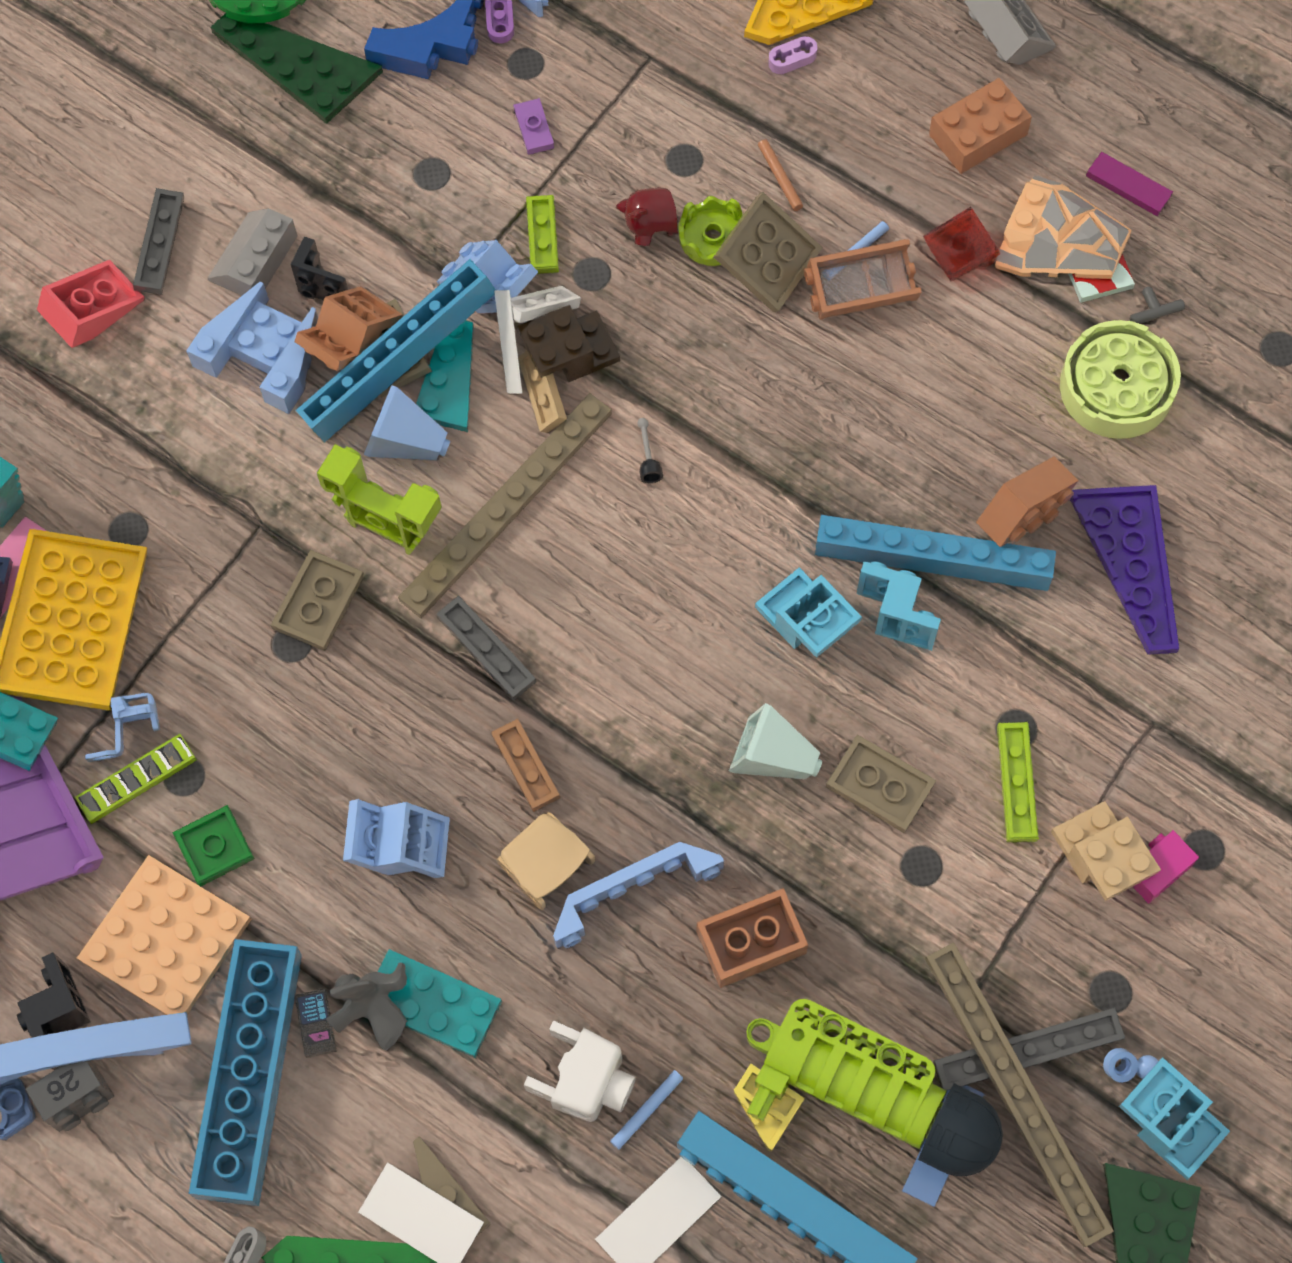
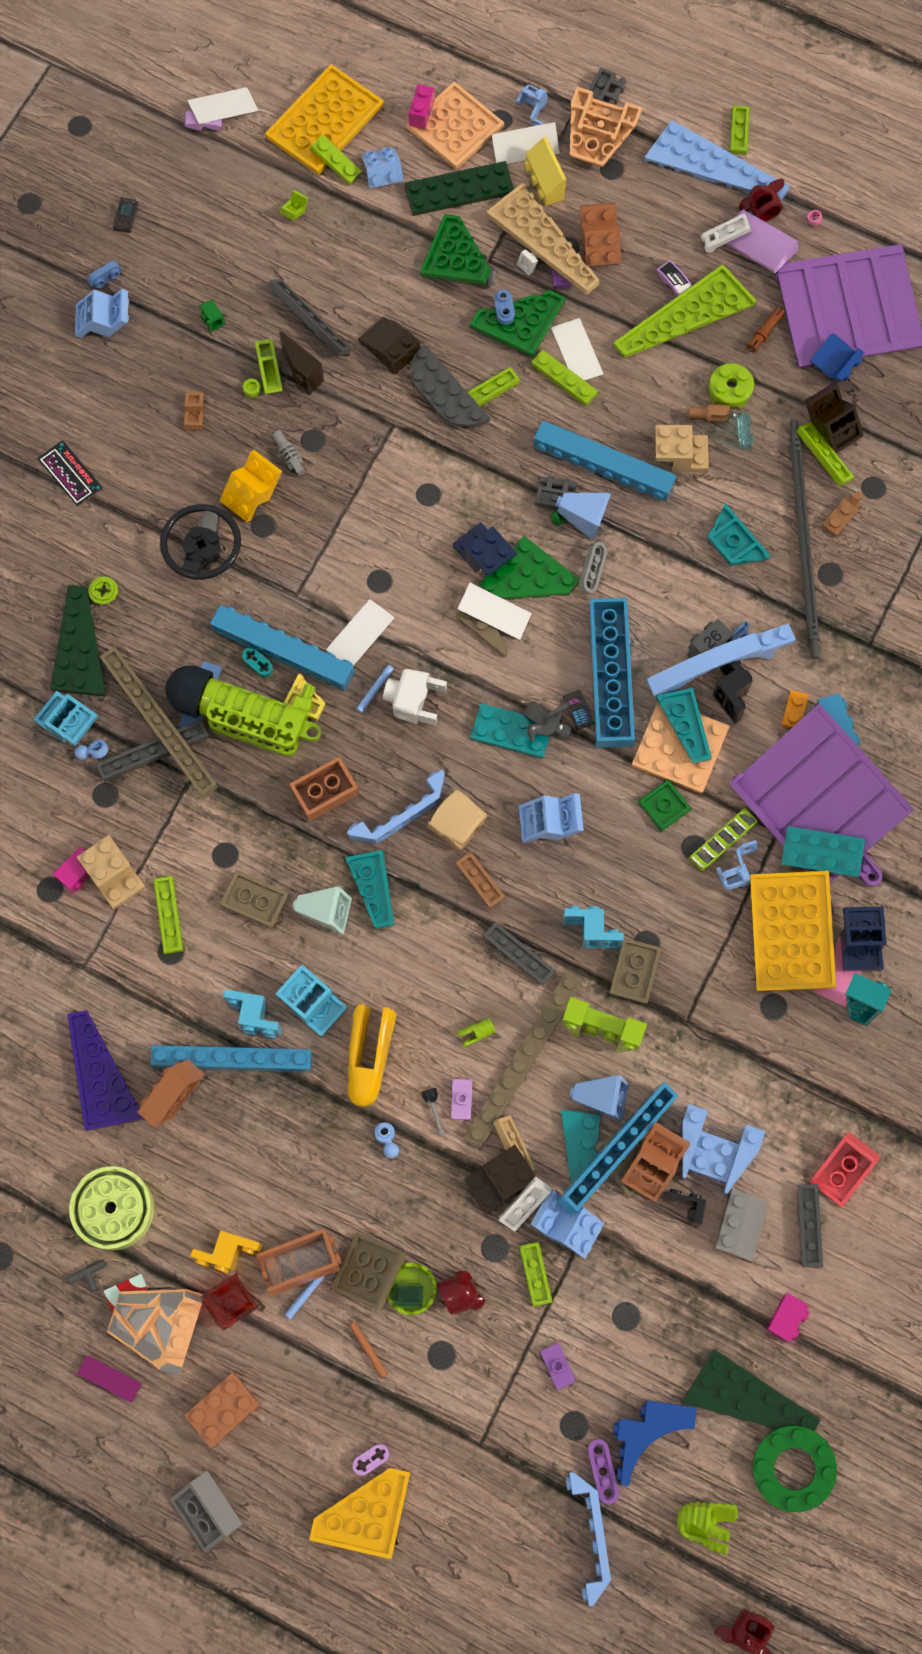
camera: 170 degrees right, 5 degrees up
(145, 970) = (685, 719): none -> teal wing
(220, 139) = (787, 1318): none -> dark pink brick
(367, 660) = (593, 927): none -> medium azure bracket
(508, 341) = (542, 1169): white sticker -> none
(568, 546) = (481, 1030): none -> lime hinge
(606, 461) = (461, 1099): none -> lavender plate
(693, 786) = (372, 882): none -> teal wing
(717, 407) = (390, 1149): none -> light blue plate
(718, 214) = (407, 1294): none -> clear green brick
(743, 500) = (364, 1082): none -> yellow piece
(847, 1180) = (260, 660): none -> teal beam
(966, 293) = (226, 1252): none -> yellow bracket

